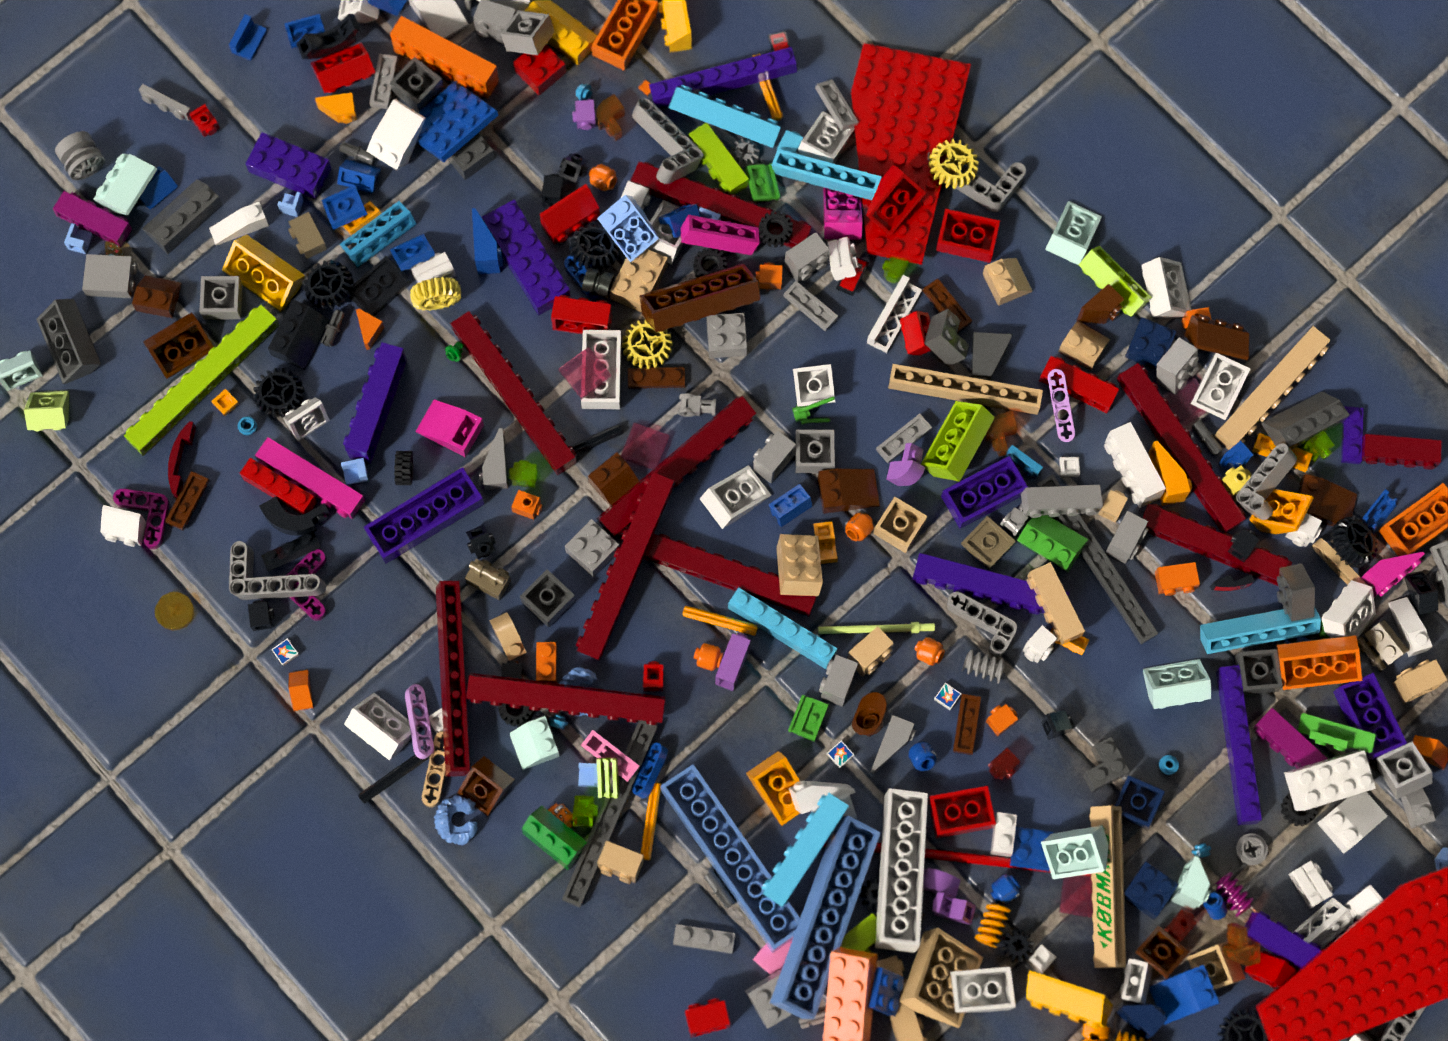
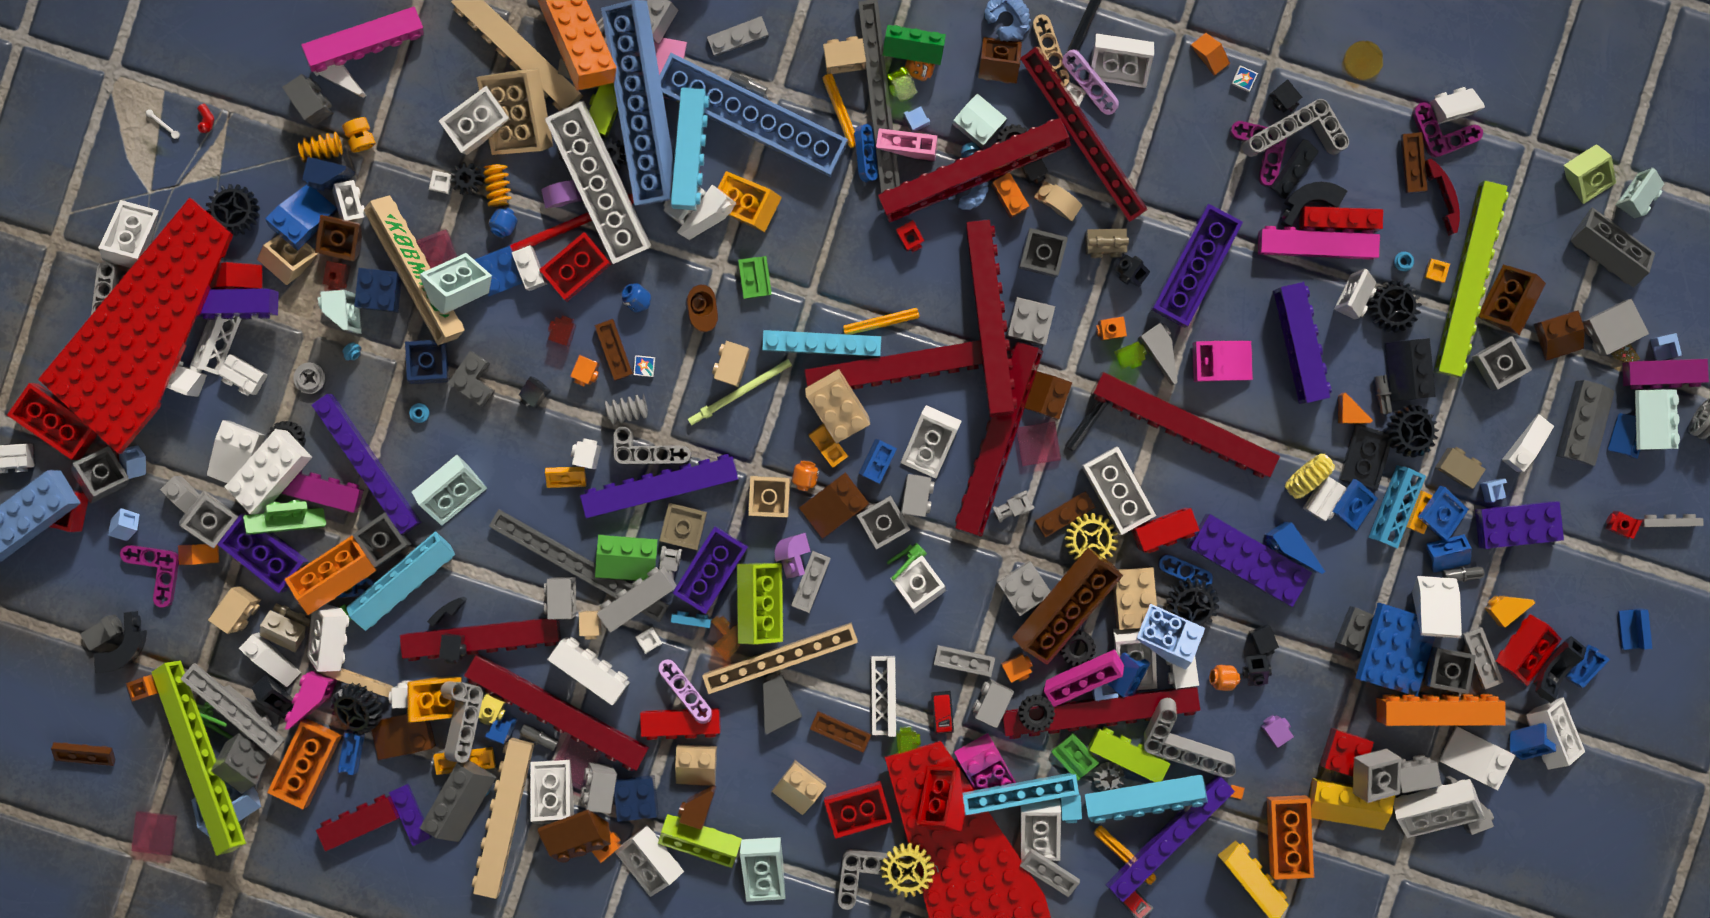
camera: 150 degrees right, 15 degrees up
(263, 272) = (1479, 411): yellow slope -> none
(355, 471) = (1281, 273): light blue panel -> none
(403, 468) = (1240, 298): black tyre -> none
(454, 352) = (1260, 432): green plate -> none
(569, 214) = (1232, 621): red slope -> none
(584, 92) = (1291, 752): dark azure plate -> none
(585, 373) = (1130, 474): clear pink tile -> none
(598, 282) = (1169, 570): pearl dark grey wheel -> none
(608, 113) = (1257, 742): clear orange brick -> none
(608, 793) = (890, 110): tile -> none
(708, 656) = (872, 281): orange head -> none
(733, 661) = (847, 287): medium lavender brick -> none
(839, 679) = (745, 322): light grey brick -> none
(840, 754) = (709, 261): tile -> none
(842, 258) = (960, 720): white brick -> none
(886, 991) = (554, 68): blue plate -> none
(895, 738) = (669, 300): light grey slope -> none
(914, 331) = (852, 687): brick -> none
(929, 651) = (681, 396): orange head -> none
(944, 340) = (826, 694): dark grey brick -> none
(953, 909) = (537, 179): medium lavender brick -> none
(1055, 603) = (590, 497): tan brick -> none
(1068, 1000) = (396, 151): yellow slope -> none
(1171, 474) = (553, 678): light orange slope -> none
(1177, 578) = (498, 587): orange brick -> none
(1215, 906) = (307, 308): blue brick -> none
(1233, 894) = (303, 329): magenta piece -> none
(1240, 947) = (271, 277): clear orange brick -> none
(1296, 592) = (382, 628): dark grey brick -> none
(1319, 446) = (432, 784): clear neon green brick -> none

